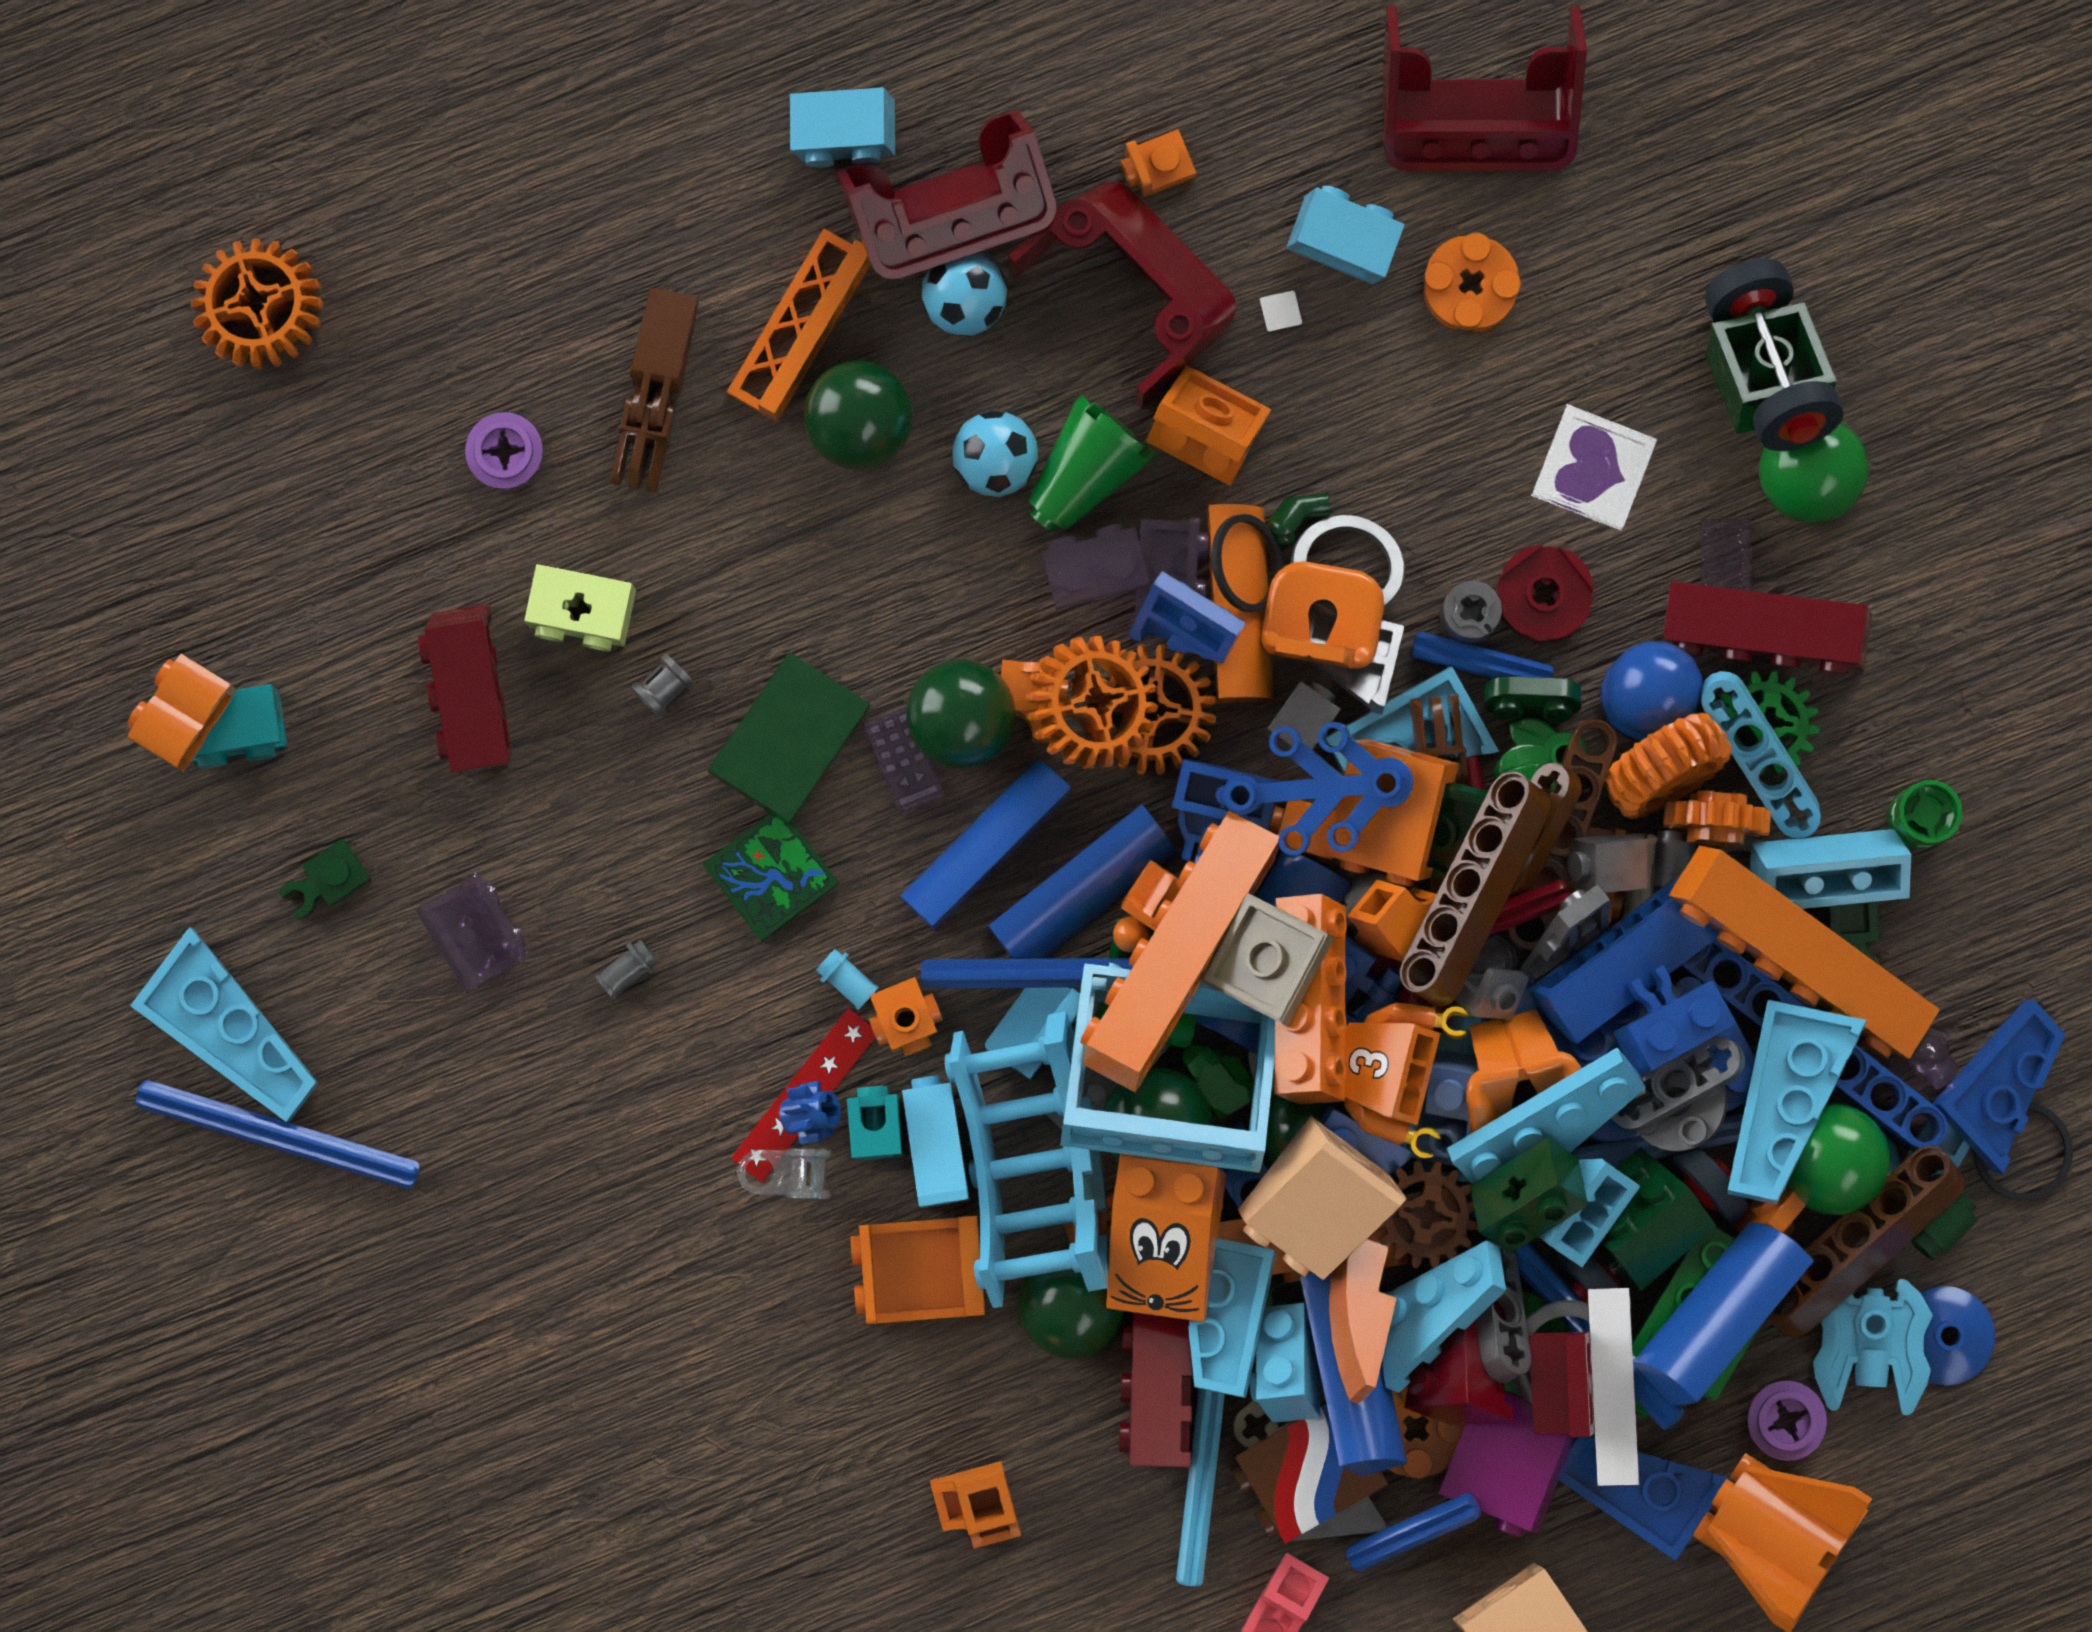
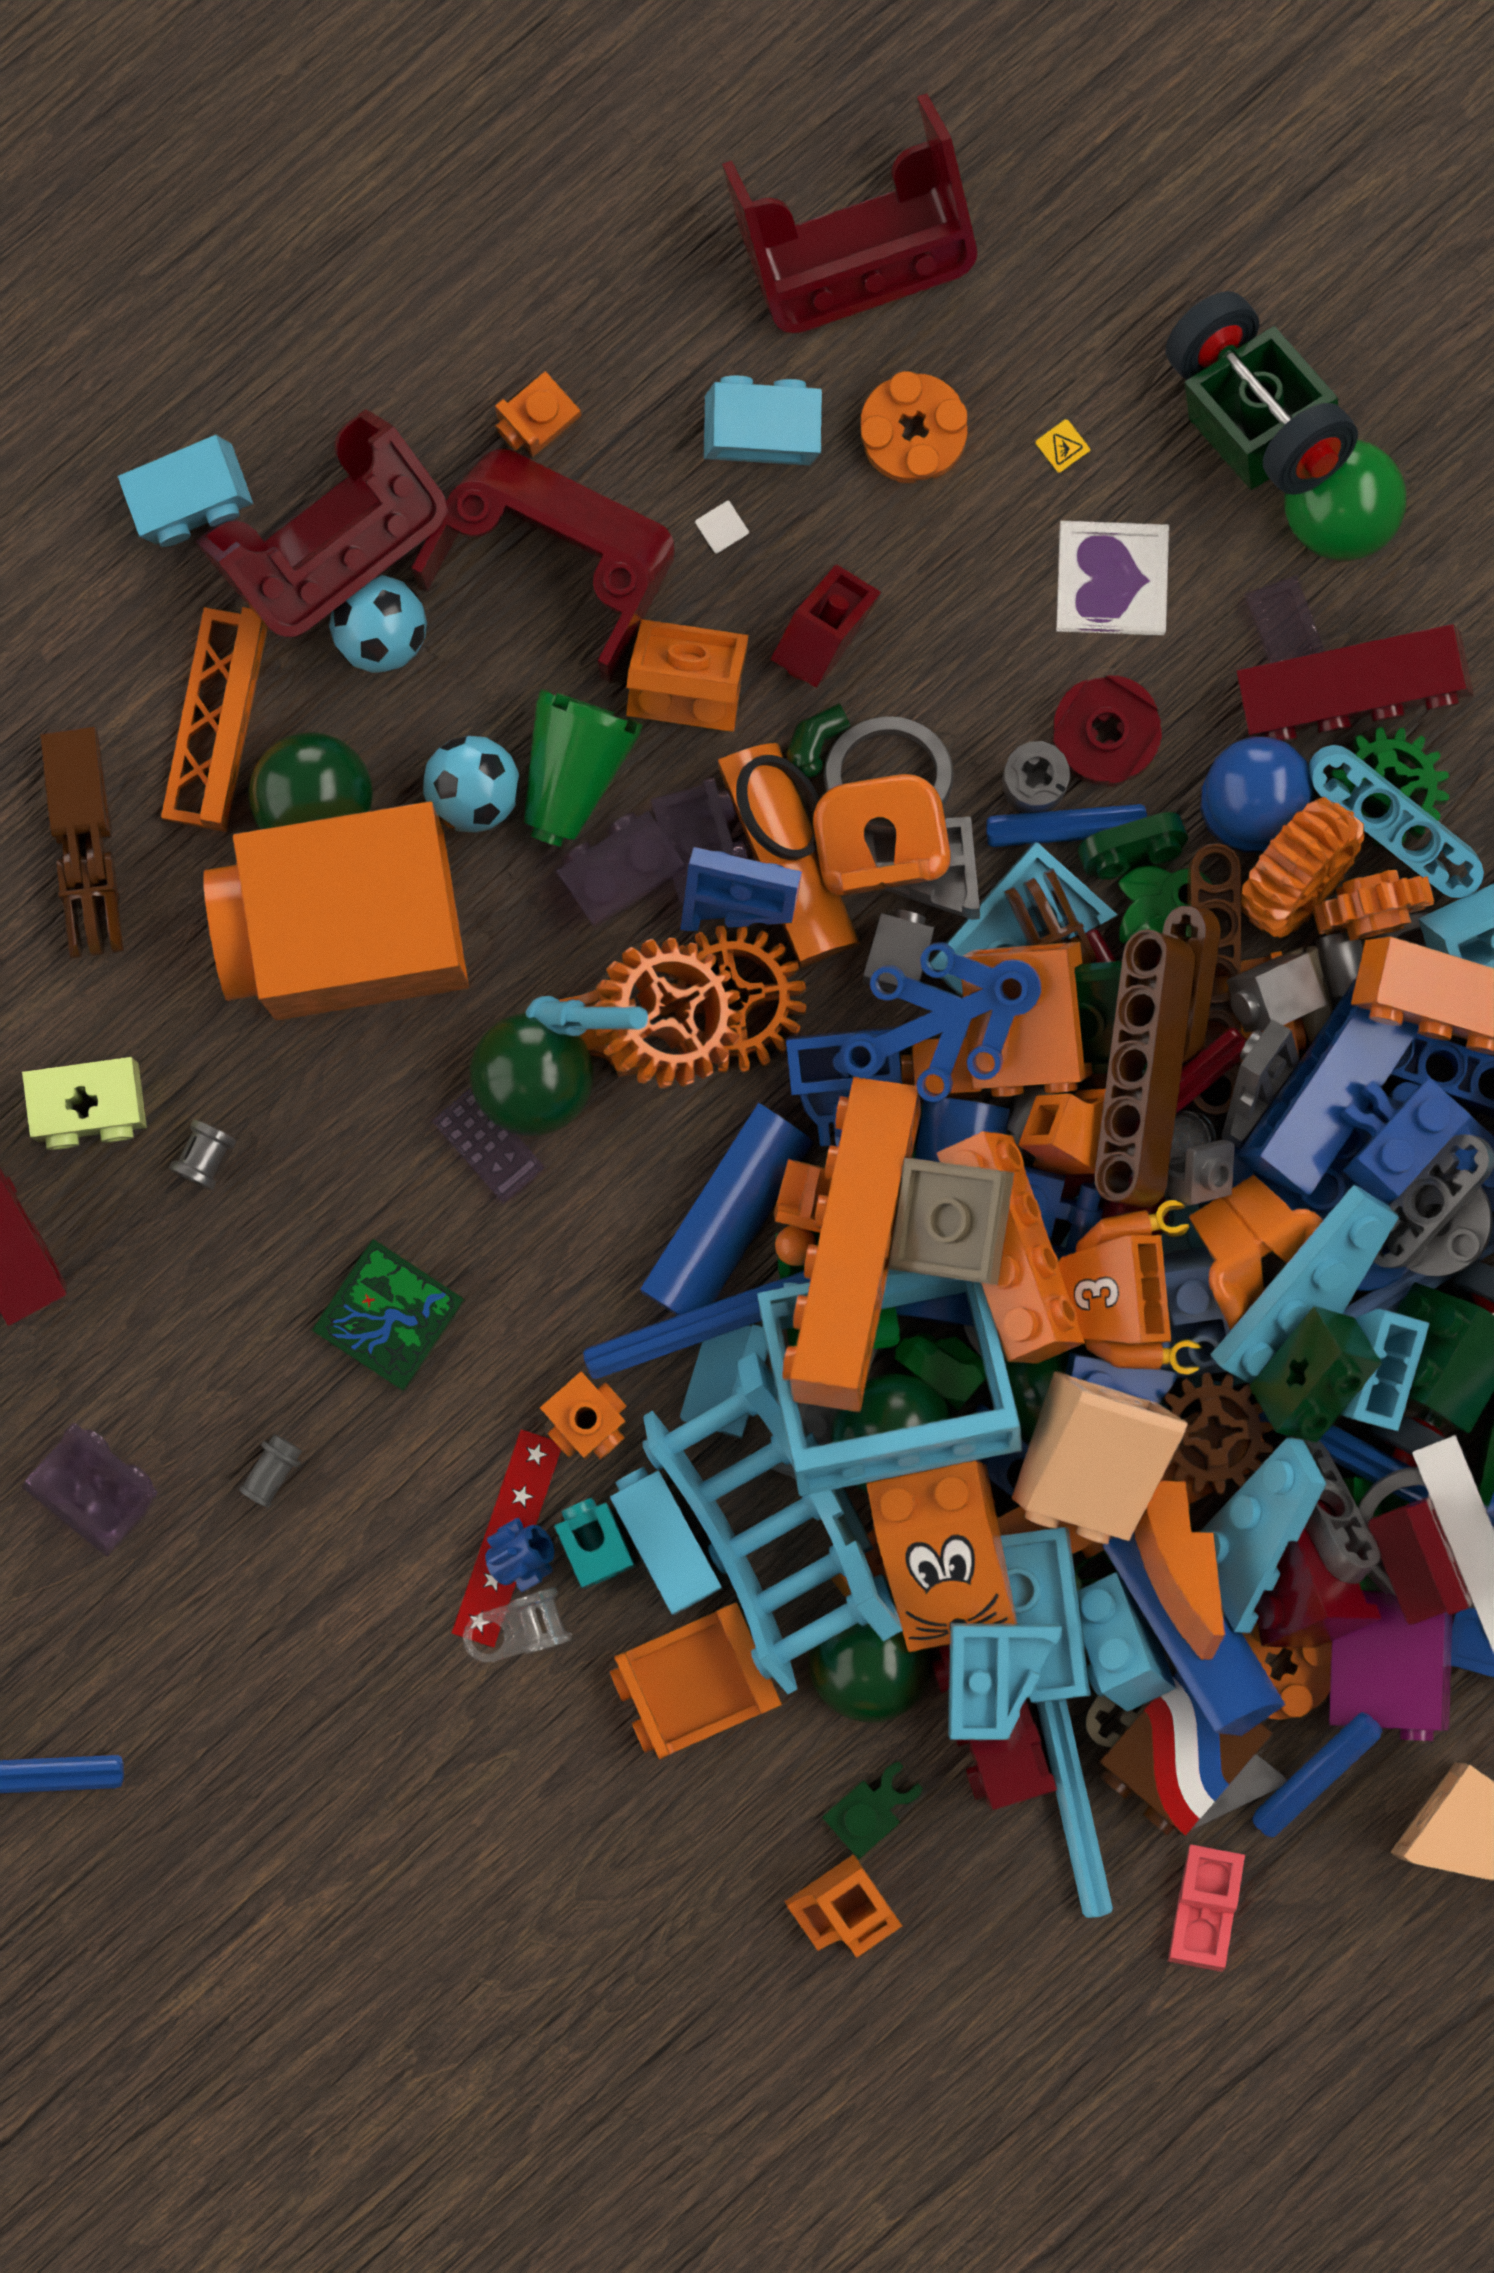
camera: 15 degrees left, 0 degrees up
(789, 738) = (357, 1164): dark green tile -> none
(845, 523) = (337, 913): none -> orange container
(846, 978) = (508, 1398): medium azure pin -> none
(986, 843) = (607, 1202): blue brick -> none
(1011, 680) = (574, 1018): none -> medium azure pin
(1023, 1432) = (865, 1814): none -> dark green plate
(1171, 1352) = (994, 1674): none -> medium azure wing
(1338, 423) = (825, 625): none -> dark red slope
(1591, 341) = (1062, 445): none -> yellow sticker

